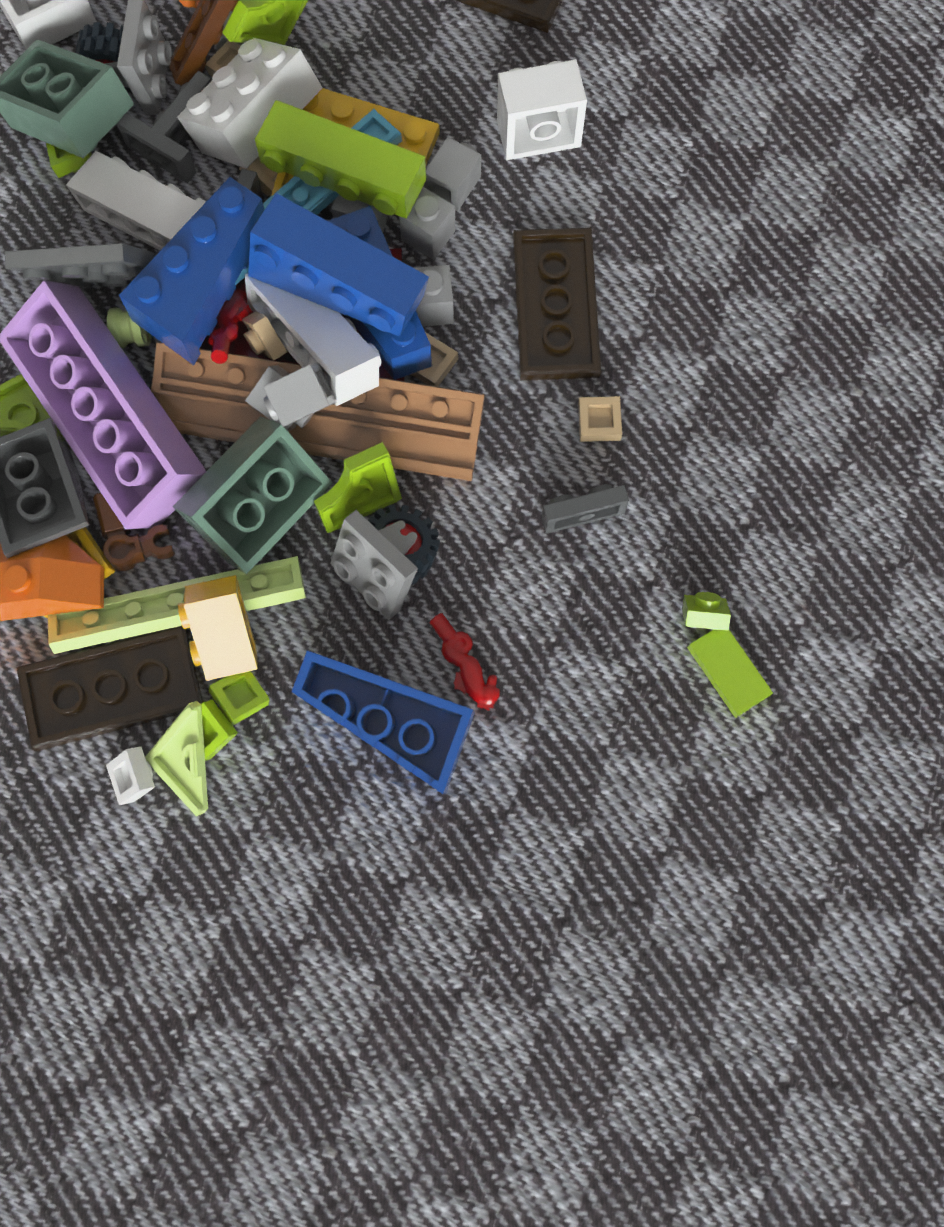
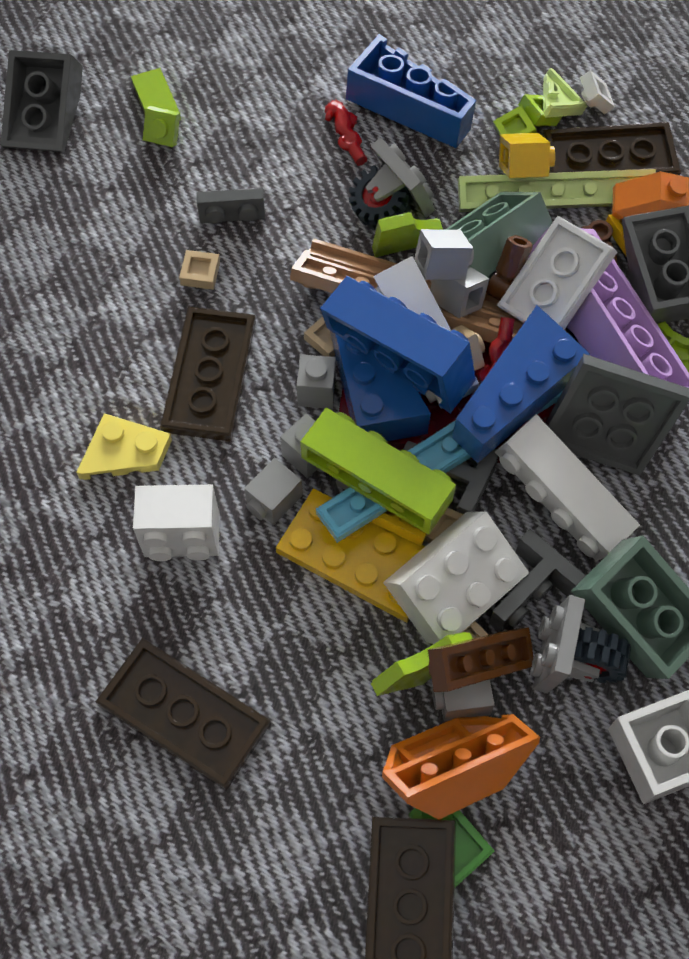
camera: 170 degrees left, 10 degrees down
(163, 412) = (558, 274): none -> white tile
(220, 434) = (509, 265): none -> reddish brown bar
(623, 203) = (123, 448): none -> light yellow wing
(877, 626) = (40, 100): none -> dark grey slope

